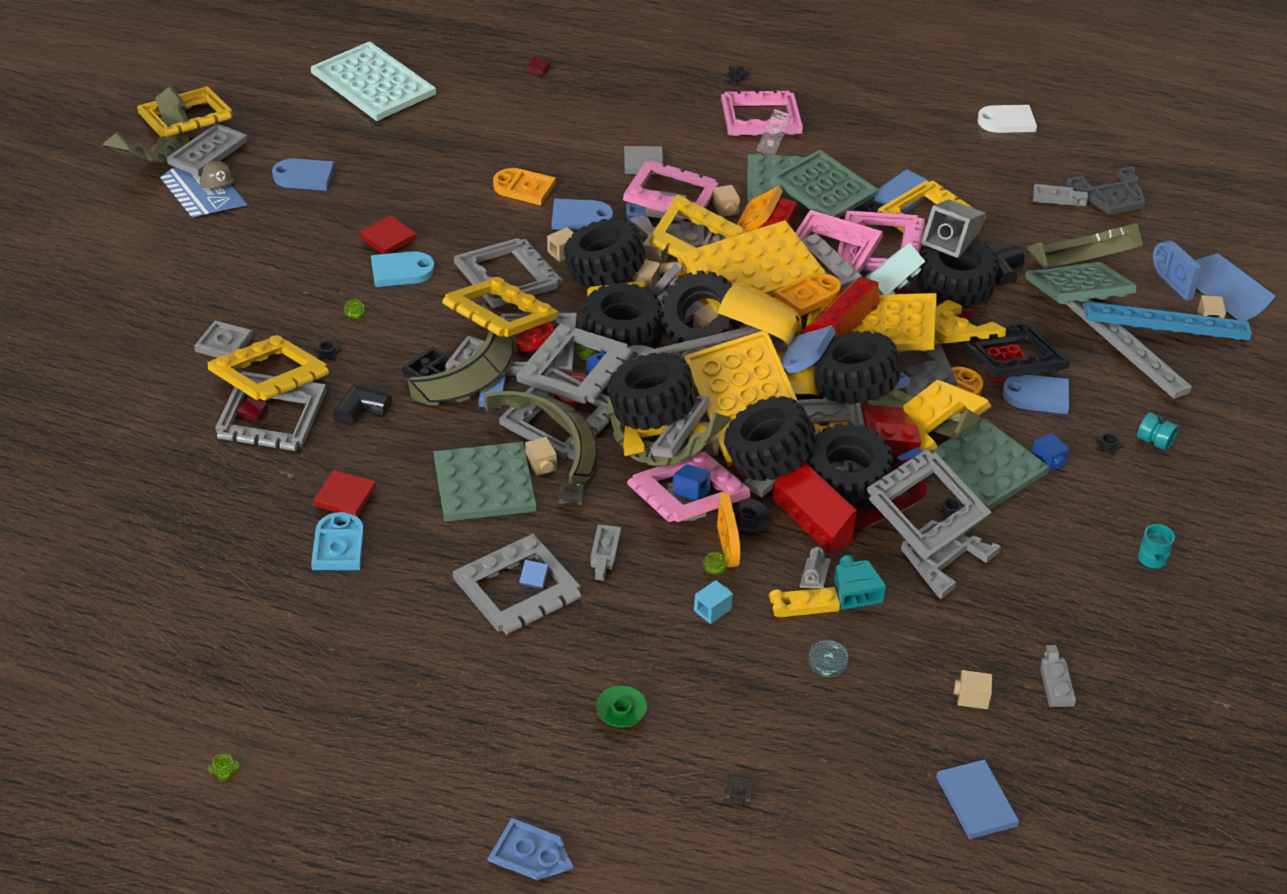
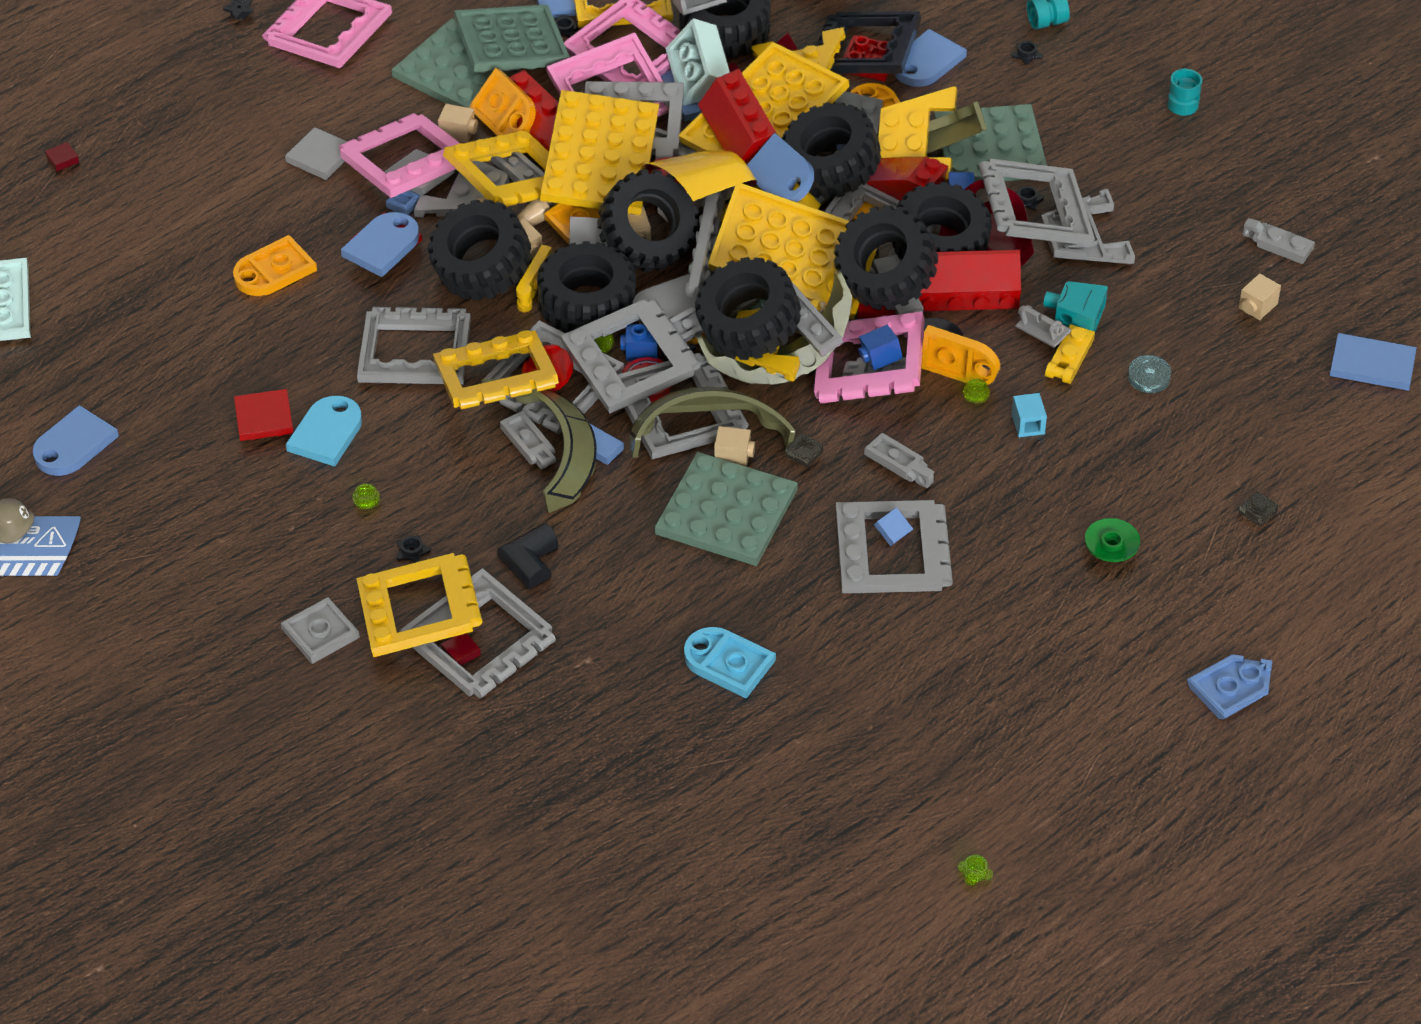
camera: 55 degrees left, 5 degrees up
(344, 493) = (662, 623): red tile -> none
(425, 364) = (520, 479): black brick -> none
(556, 243) = (413, 280): tan brick -> none
(668, 278) = (558, 226): light grey plate -> none
(773, 133) = (382, 32): clear tile -> none
(809, 292) = (680, 132): light orange tile -> none
(1051, 451) = (1016, 90): blue brick -> none

